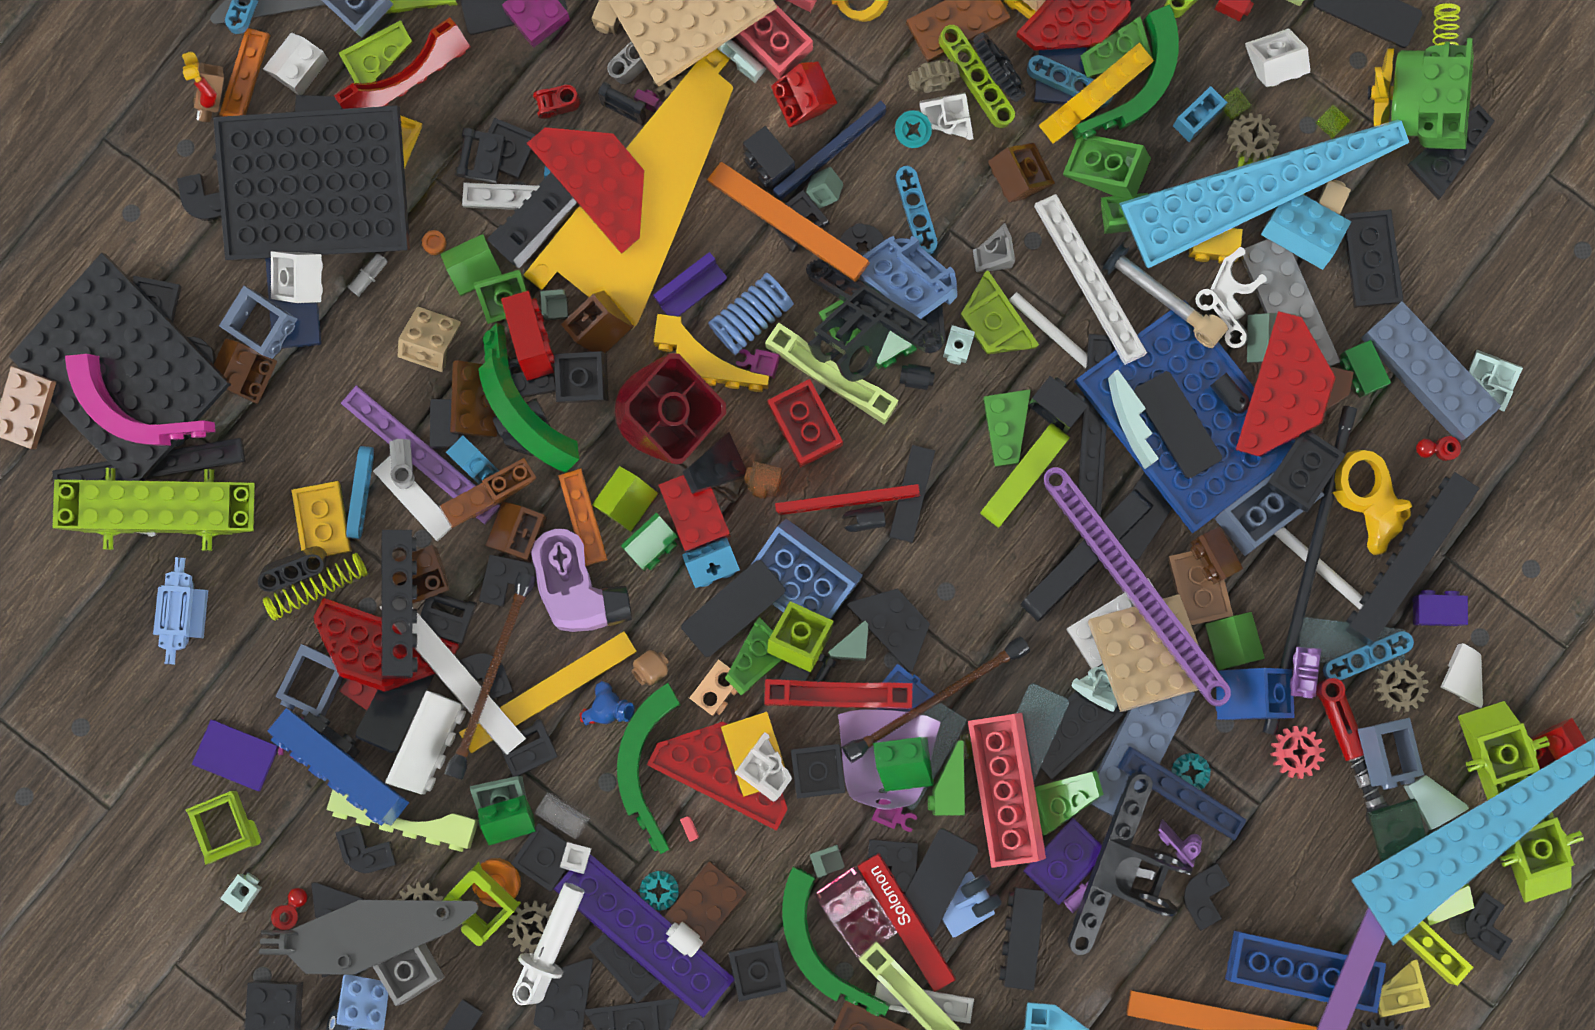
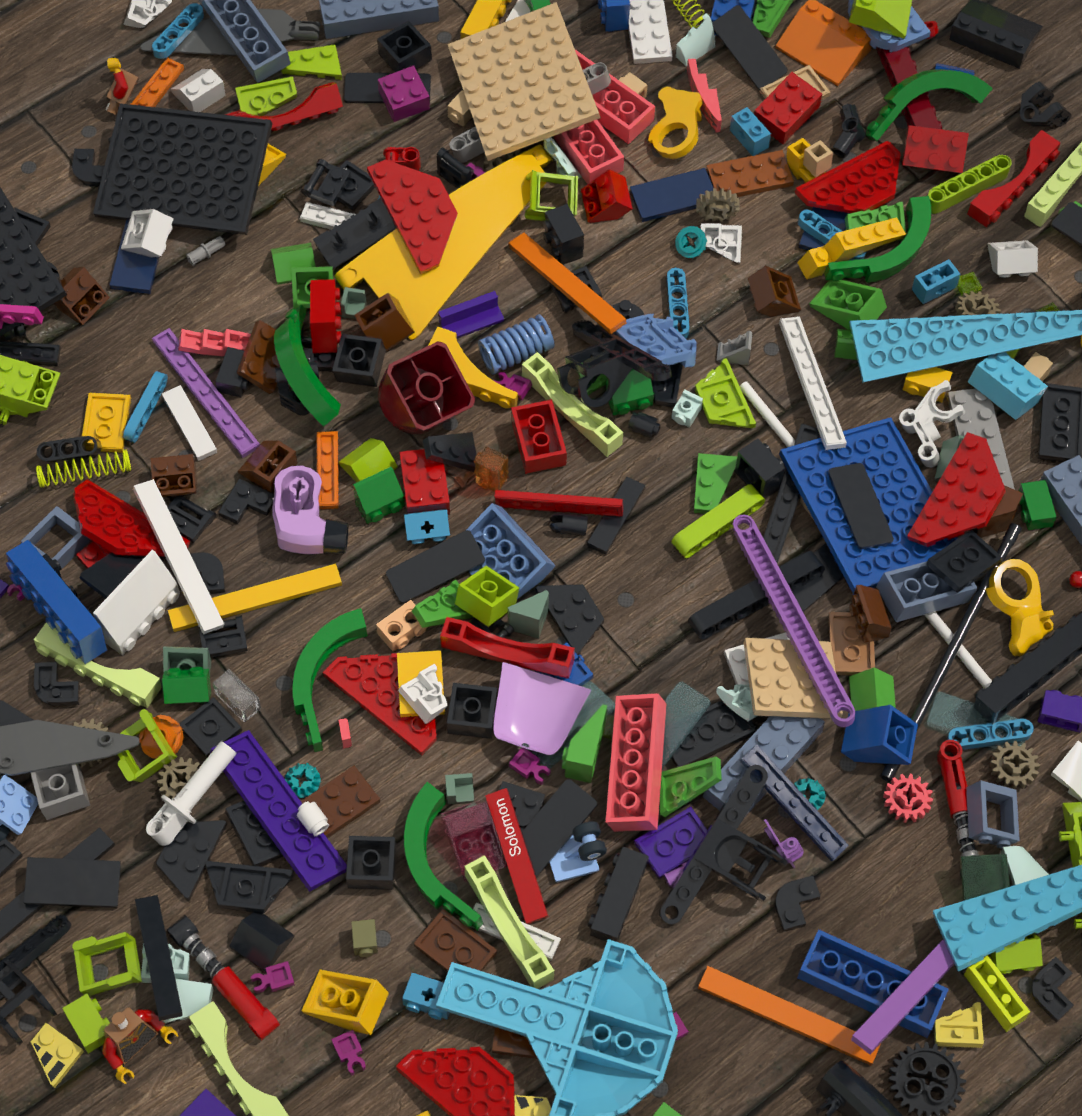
camera: 10 degrees right, 20 degrees down
(241, 310) = (94, 250): sand blue window -> none
(390, 542) = (130, 530): black brick -> none
(401, 461) = (187, 390): light grey piece -> none
(412, 392) = (212, 342): none -> coral slope
(427, 338) = (237, 306): tan bracket -> none
(434, 242) = (268, 240): orange tile -> none
(458, 764) = (158, 625): reddish brown hose -> none
(471, 460) = (248, 403): dark azure slope -> none
(488, 494) = (254, 429): dark orange slope -> none
(575, 858) = (237, 728): white plate -> none
(607, 707) = (302, 619): blue animal -> none
(650, 667) = (349, 596): medium nougat head -> none
(765, 103) = (537, 212): none -> lime piece
(824, 187) = (605, 269): sand green panel -> none
(829, 151) = (617, 242): dark blue tile -> none
(877, 68) = (670, 194): none -> dark blue tile
(904, 763) = (549, 716): green slope -> none
(976, 65) = (754, 223): lime beam -> none
(999, 67) = (774, 207): black gear -> none
(1014, 650) = (511, 694): reddish brown hose -> none
(1128, 411) = (820, 482): light aqua slope -> none
(1207, 328) = (903, 439): piece -> none
(1231, 394) = (912, 491): black piece -> none
(1305, 672) = (930, 728): medium lavender hinge -> none

